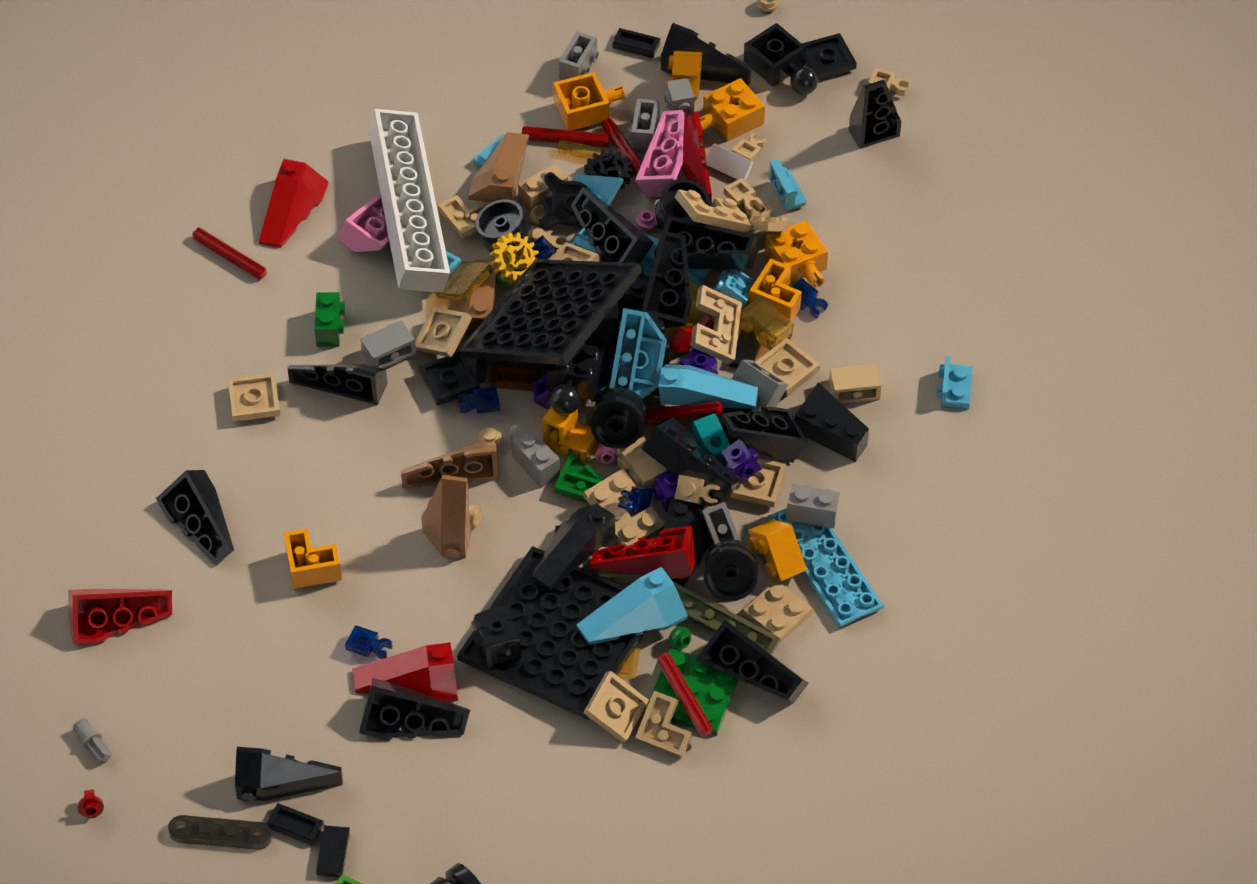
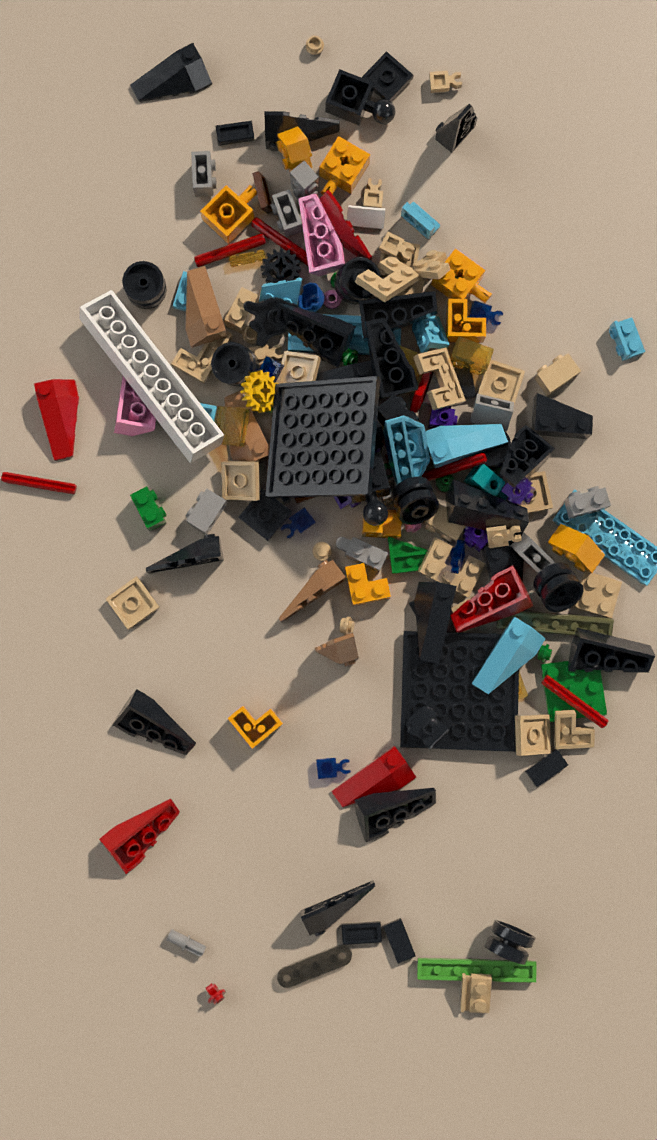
camera: 30 degrees left, 30 degrees up
(455, 126) = (146, 274): none -> black wheel
(513, 488) = (363, 591): none -> light orange brick
(613, 755) = (546, 767): none -> black tile
(628, 206) = (311, 298): none -> blue hair
(633, 91) = (262, 192): none -> reddish brown tile

